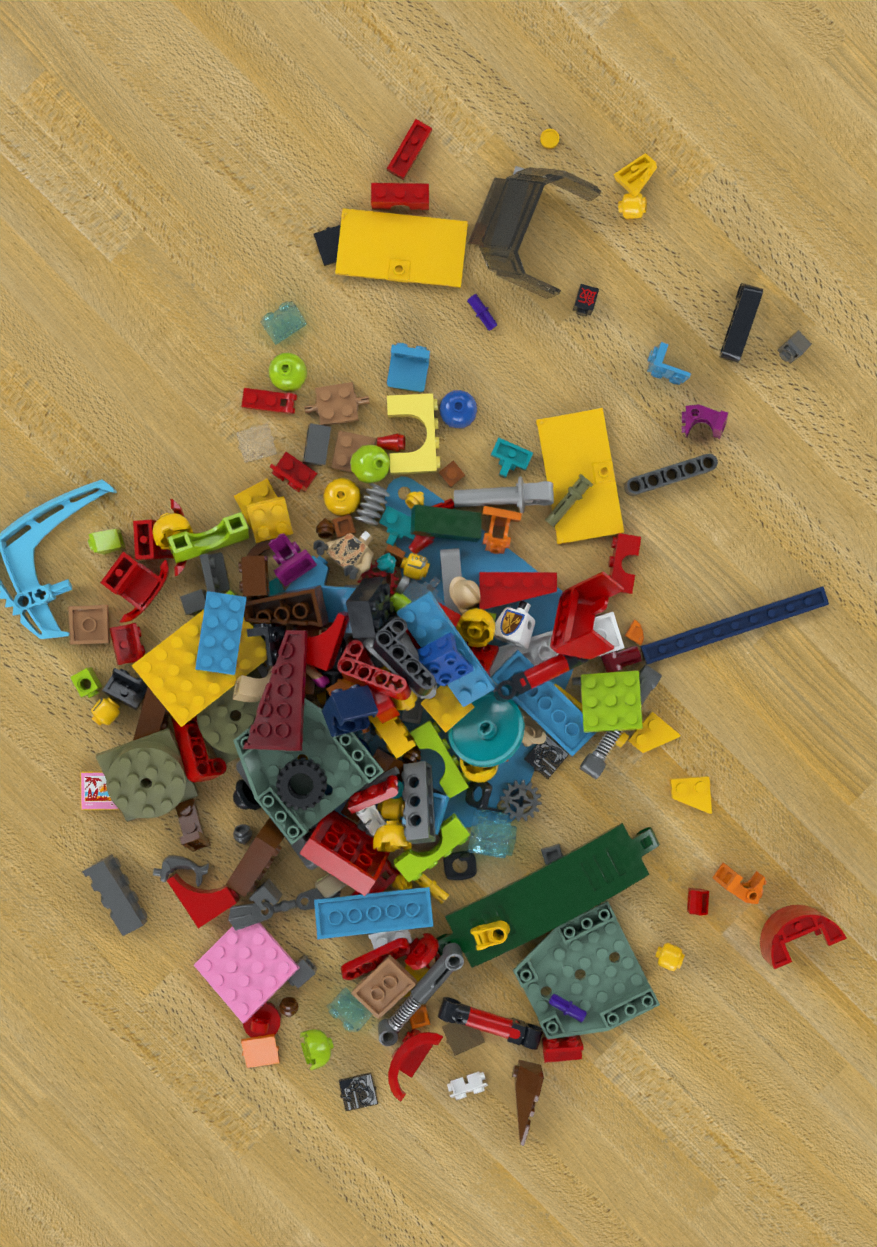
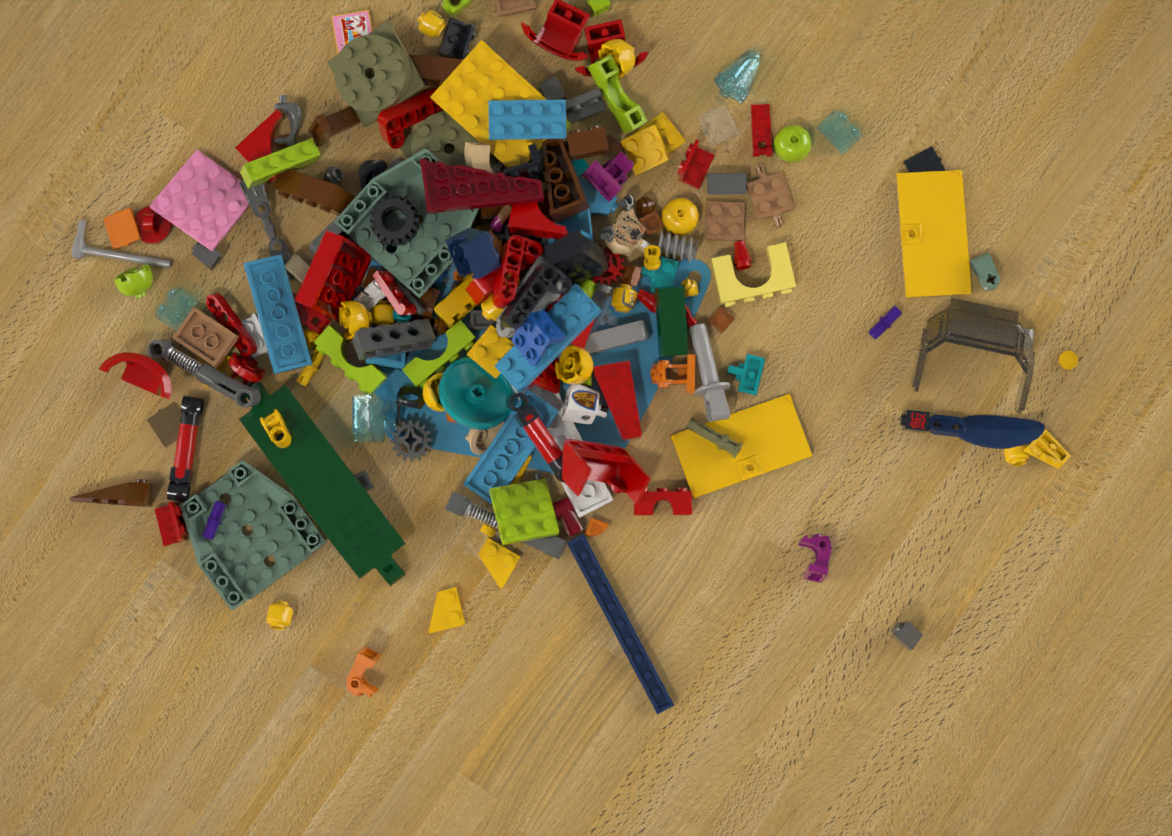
camera: 75 degrees right, 5 degrees down
(116, 894) = (255, 64): dark grey wedge -> none
(127, 643) = (501, 33): red bracket -> none
(211, 413) = (737, 78): none -> clear light blue cone
(224, 901) = (264, 168): none -> lime arch
(266, 892) = (280, 209): dark grey hinge -> none
(275, 1095) = (80, 249): none -> light grey bar
(288, 1006) = (170, 248): reddish brown plate -> none
(358, 1091) = (96, 331): piece -> none
(370, 464) = (716, 237): lime cylinder -> none
(378, 531) = (652, 256): none -> yellow bush
(386, 563) = (622, 269): teal plate -> none
(408, 194) = (985, 229): red arch -> none
(408, 367) = (817, 259): dark azure bracket -> none
(409, 149) = (1031, 225): red plate -> none
(420, 1017) = (179, 378): orange tile -> none
(446, 203) = (984, 268): none -> sand green piece
(458, 409) = (786, 315): blue cylinder -> none
(464, 594) = (605, 349): tan piece -> none
(466, 856) = (340, 381): black piece -> none
(474, 1084) = (121, 444): white hinge -> none
(546, 757) = (458, 460): piece -> none
(607, 227) = (988, 430): none -> dark blue plant
(661, 370) = (869, 498): dark azure bracket -> none
(678, 469) = (765, 541): dark grey beam -> none
(698, 901) = (339, 635): red piece -> none
(748, 300) = (921, 577): black beam -> none
(791, 924) = (335, 729): red cylinder -> none

